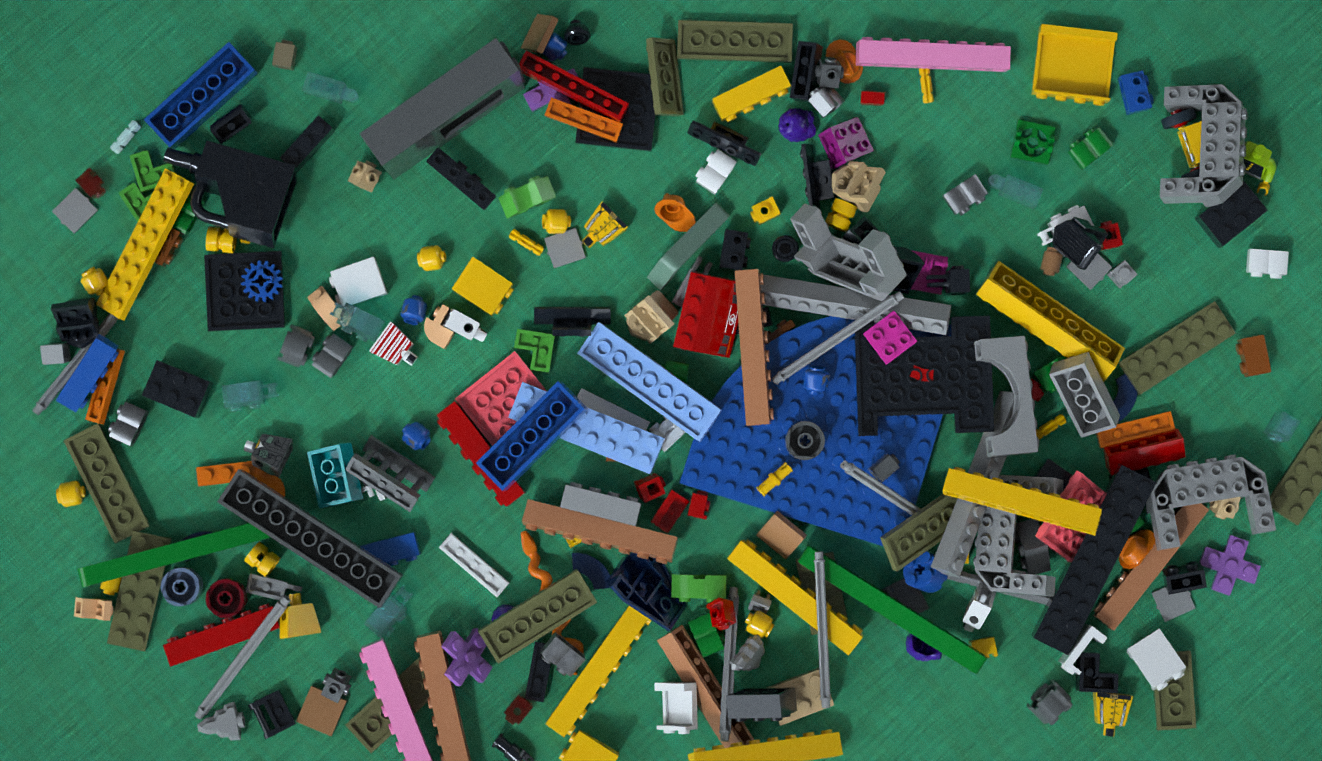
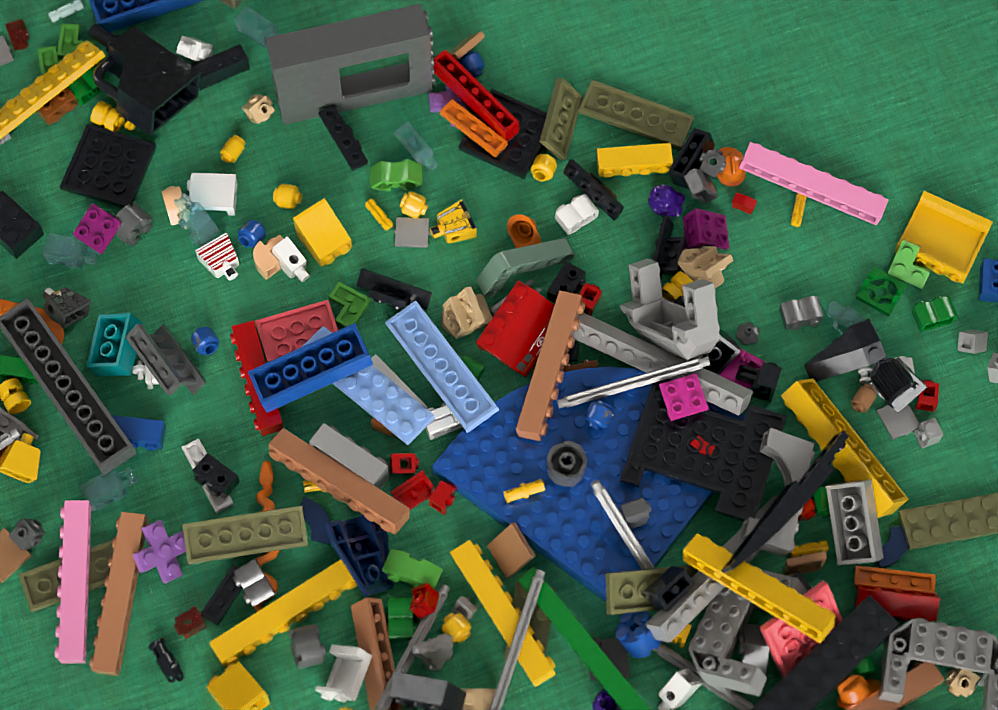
camera: 20 degrees right, 20 degrees down
(231, 124) = (162, 27): black brick -> none
(260, 272) = (128, 161): blue gear -> none
(267, 366) = (97, 228): none -> magenta bracket
(276, 137) = (194, 48): none -> white brick
(332, 355) = (160, 246): dark grey brick -> none
(357, 228) = (232, 149): none -> yellow brick
(484, 567) = (215, 476): none -> black brick
(535, 159) = (416, 145): none -> clear light blue brick
(577, 33) = (496, 61): black brick -> none
(633, 694) = (306, 646): none -> dark grey brick
(666, 134) = (543, 167): none -> yellow head
(755, 263) = (590, 292): none -> red brick
(772, 208) = (611, 267): yellow brick -> none
(785, 248) = (613, 297): black brick -> none
(916, 236) = (747, 333): none -> dark grey plant
(940, 527) = (669, 588): none -> black brick
(1022, 410) = (788, 502): none -> black slope
(1028, 222) = (849, 352): none -> black wedge
(1048, 111) = (905, 269): none -> bright green plate
(1050, 449) = (804, 564): none -> medium nougat tile
(1134, 163) = (972, 341): none -> light grey panel

